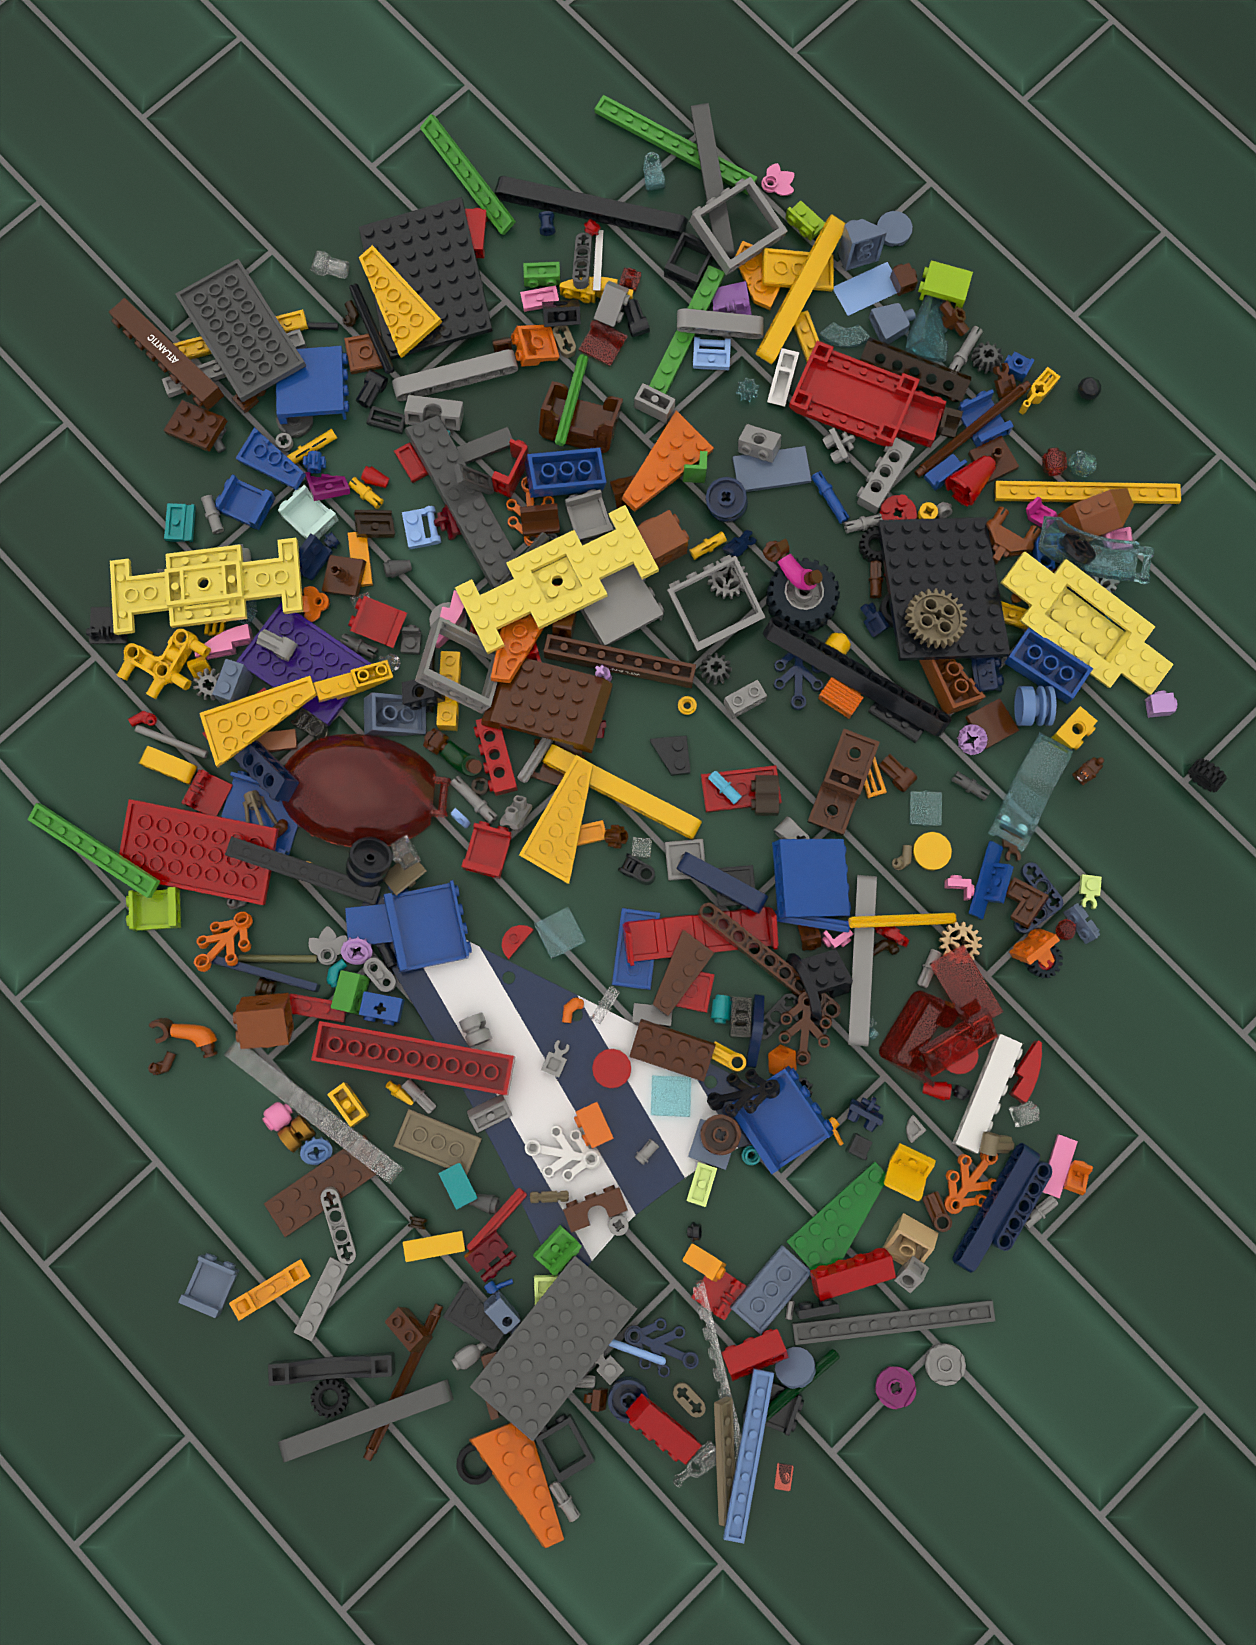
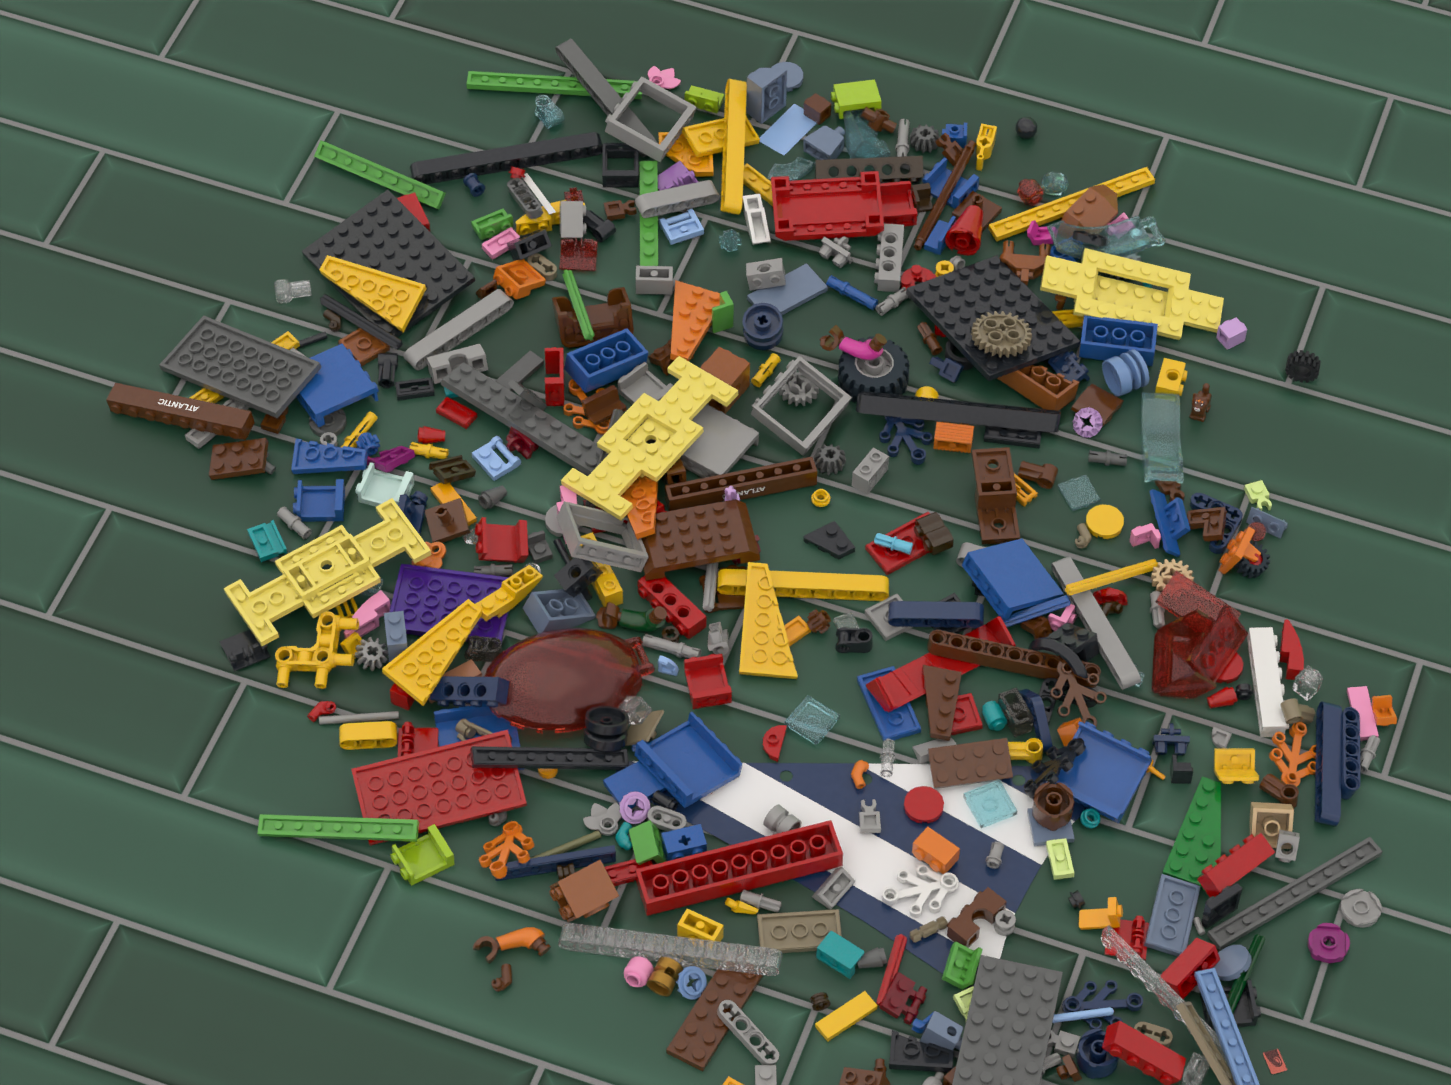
camera: 25 degrees left, 25 degrees down
(281, 647) = (425, 594): light grey piece -> none
(661, 308) = (617, 210): none -> reddish brown plate
(739, 545) = (794, 354): dark blue plate -> none
(865, 548) = (909, 319): black tyre -> none

